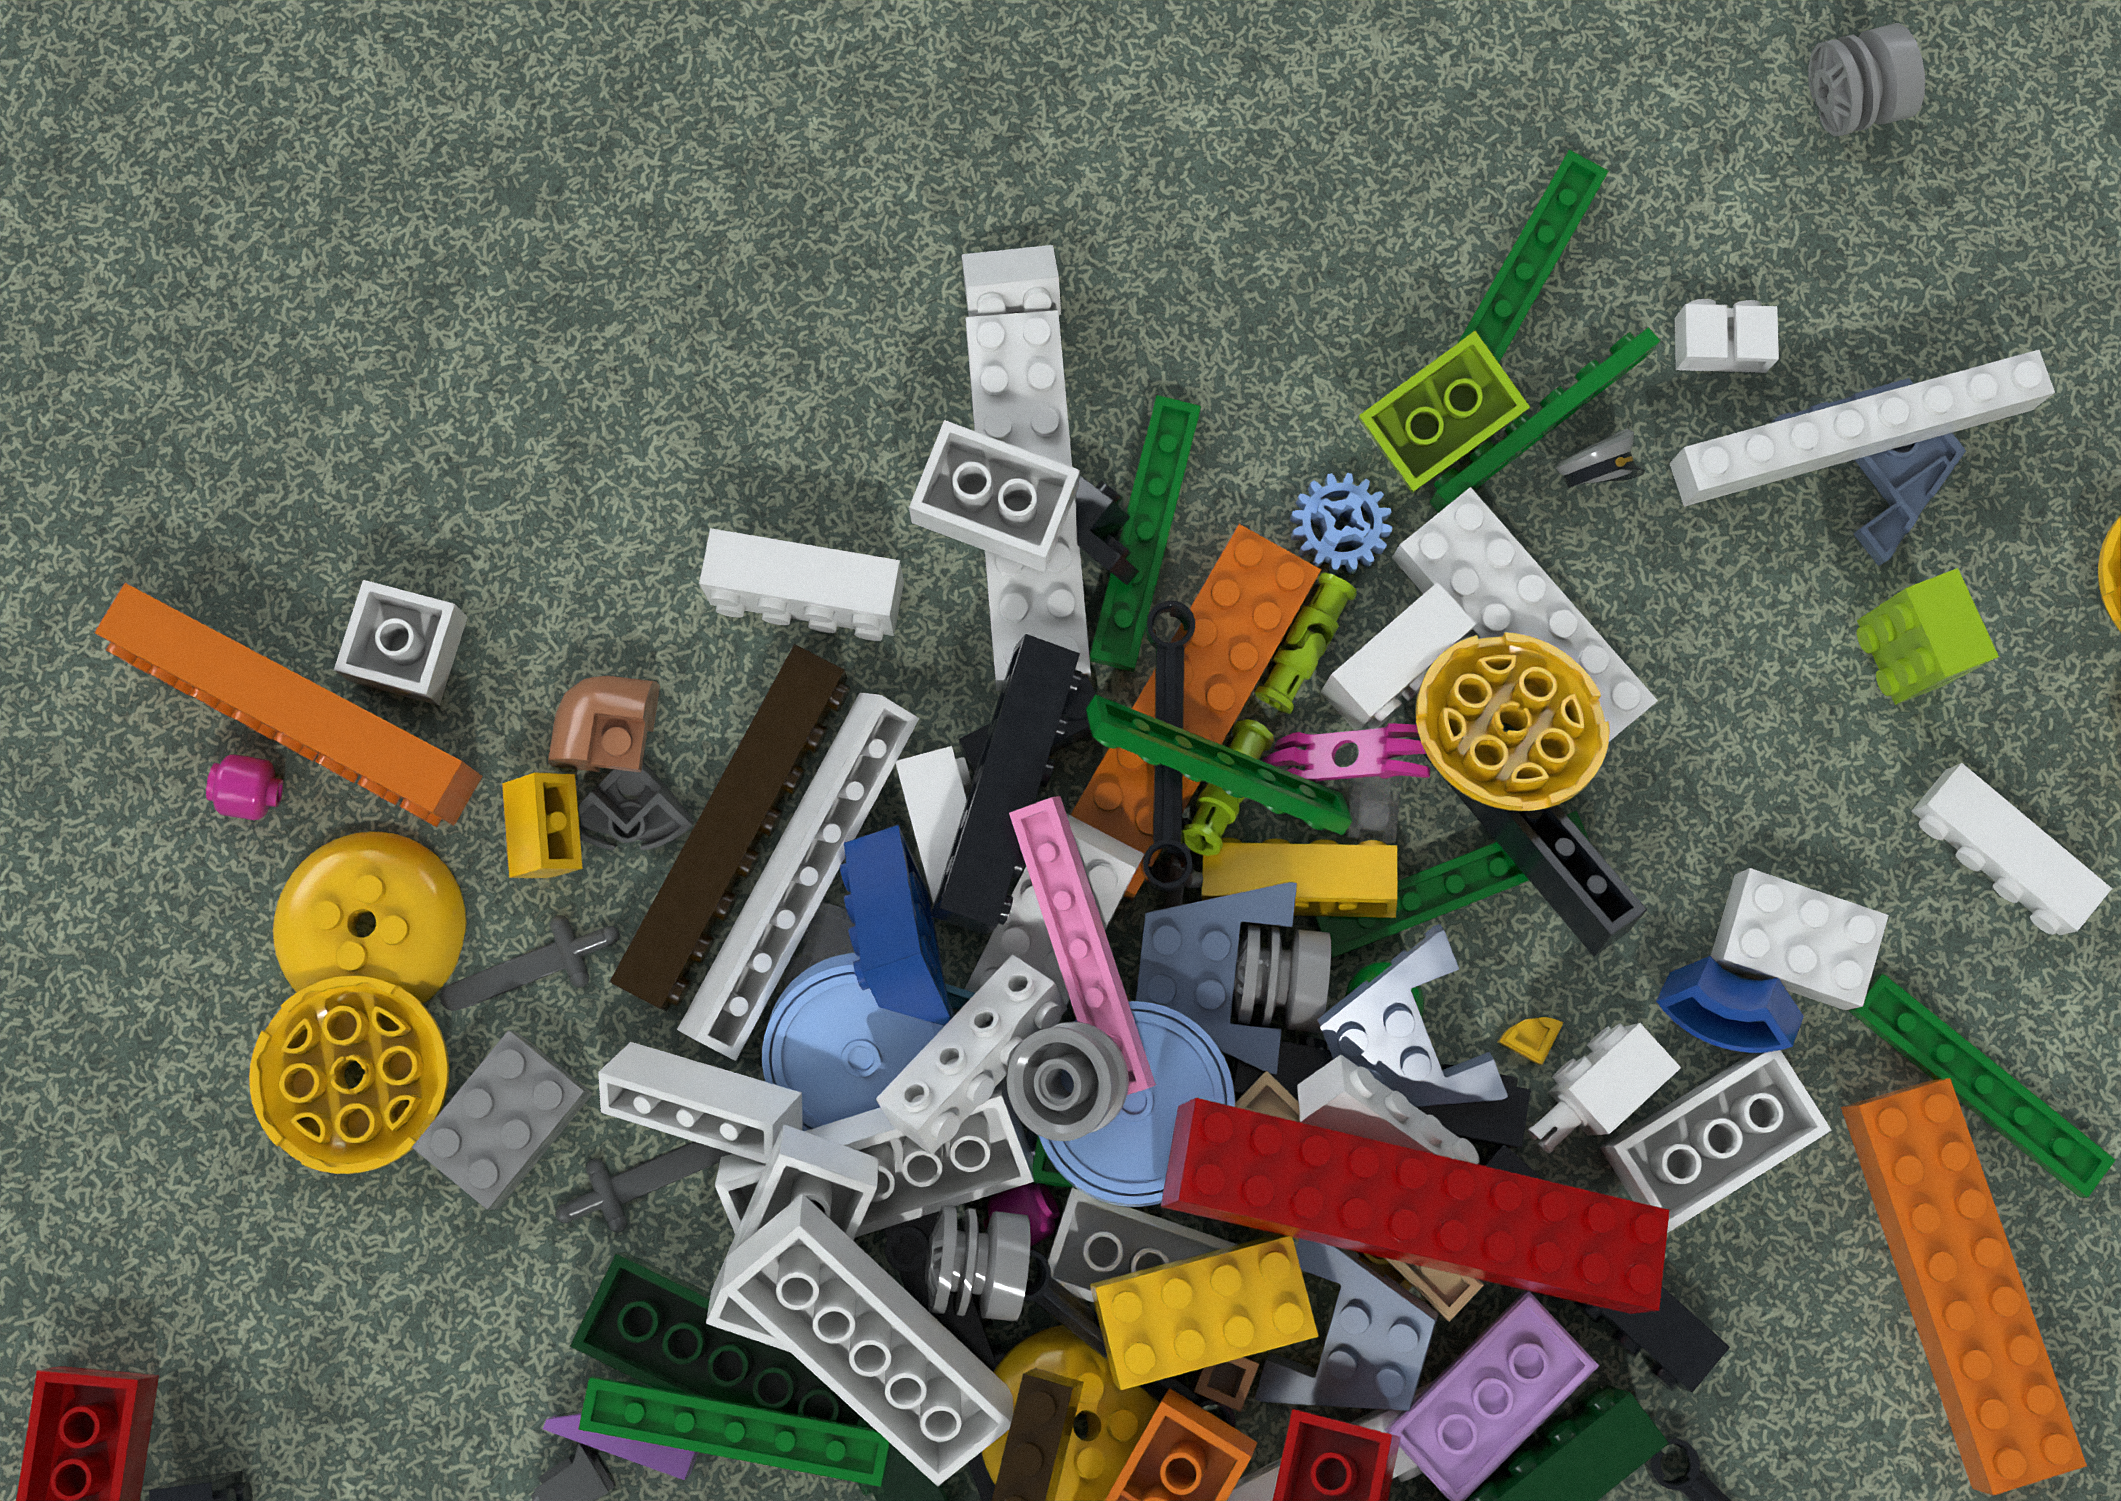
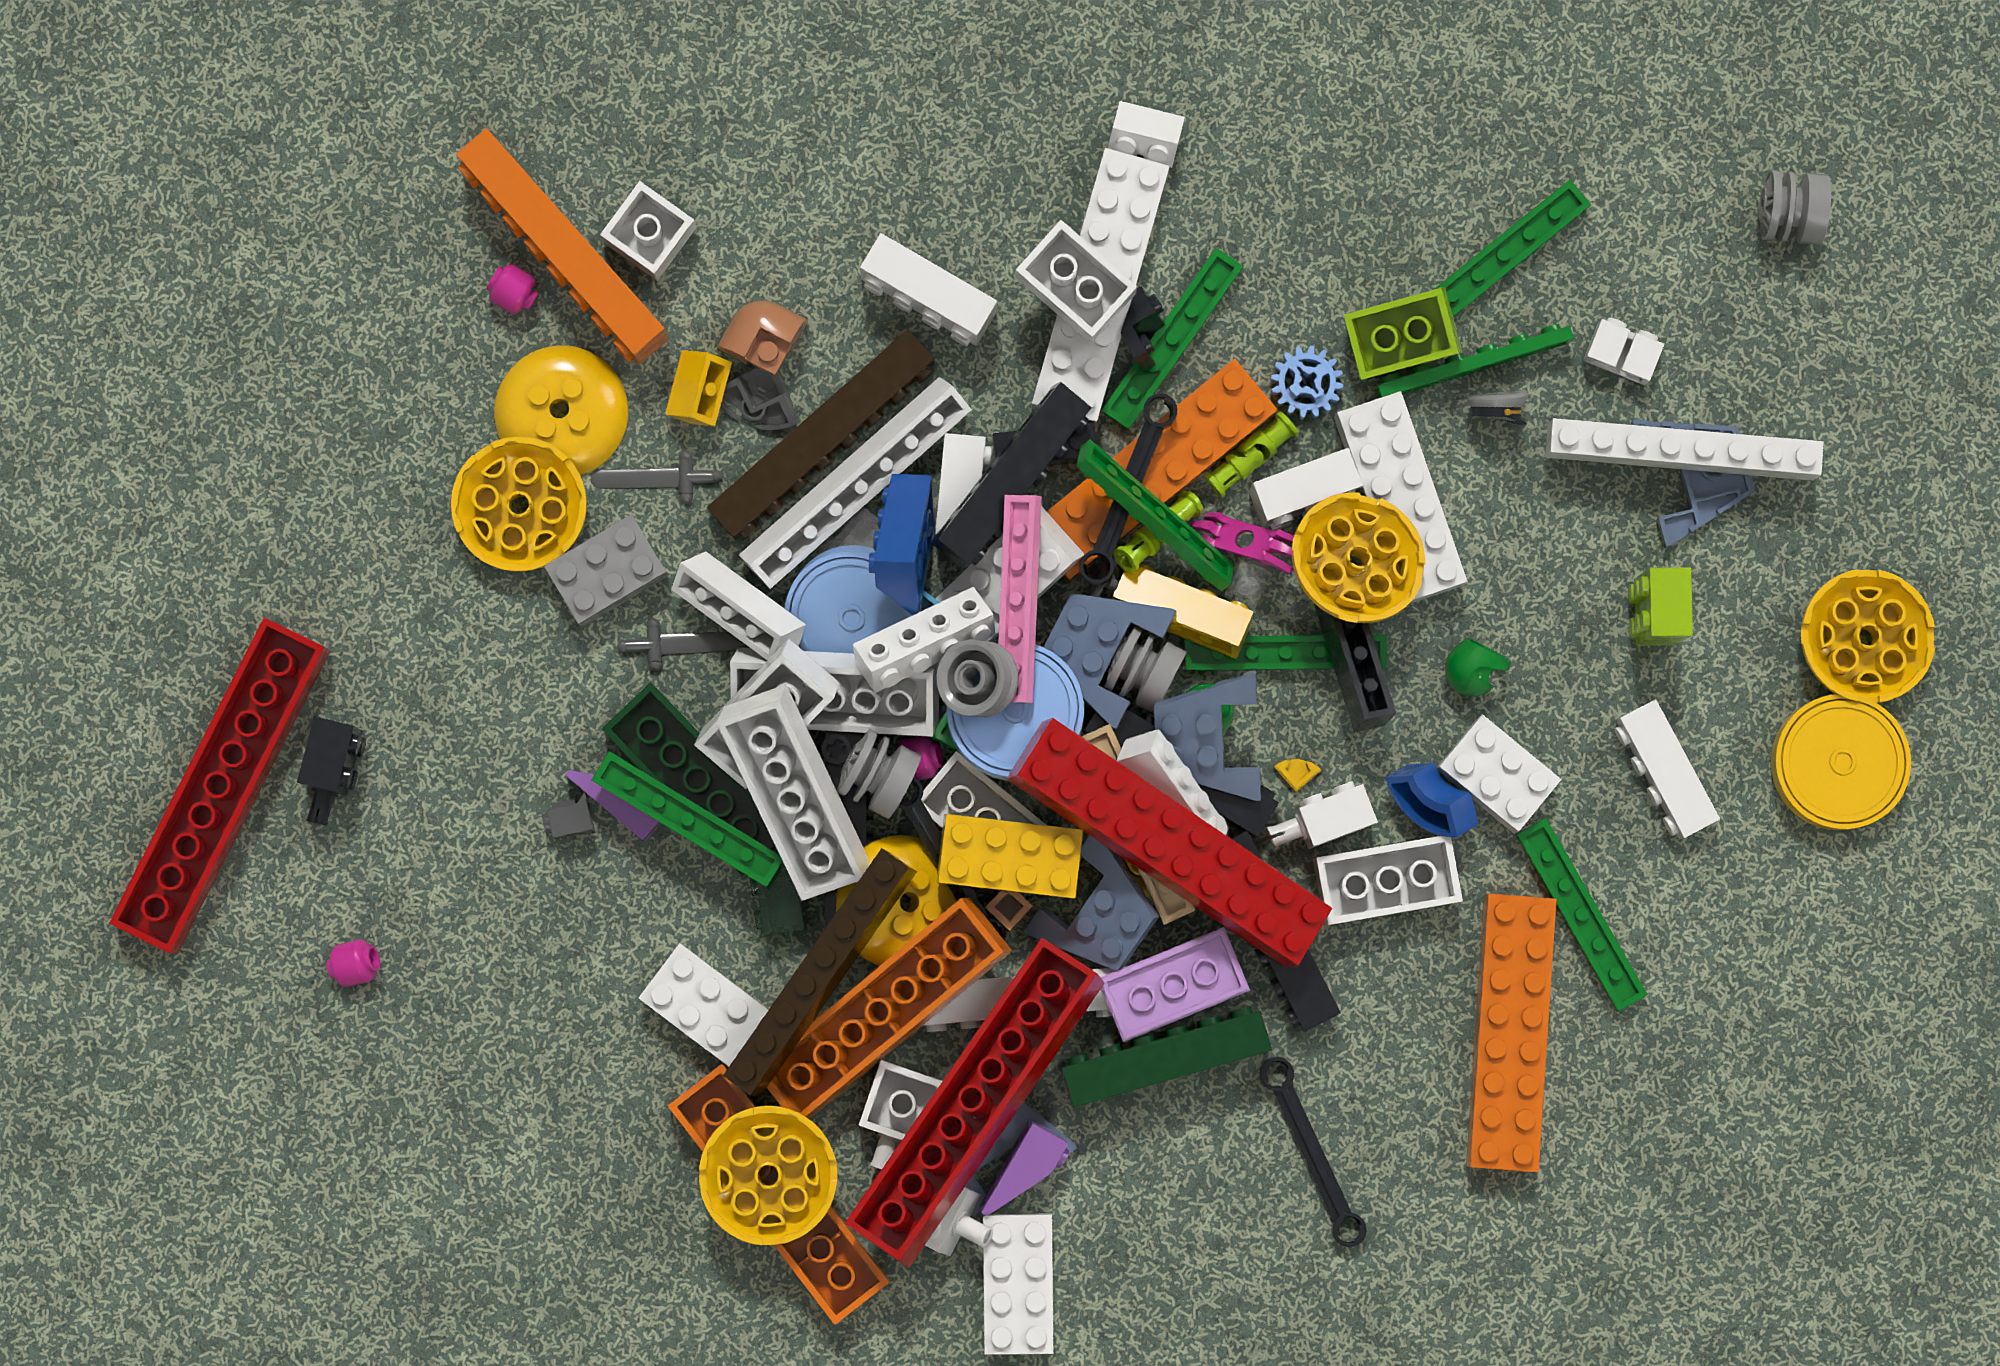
camera: 20 degrees right, 5 degrees up
(1706, 812) = (1470, 667): none -> green helmet

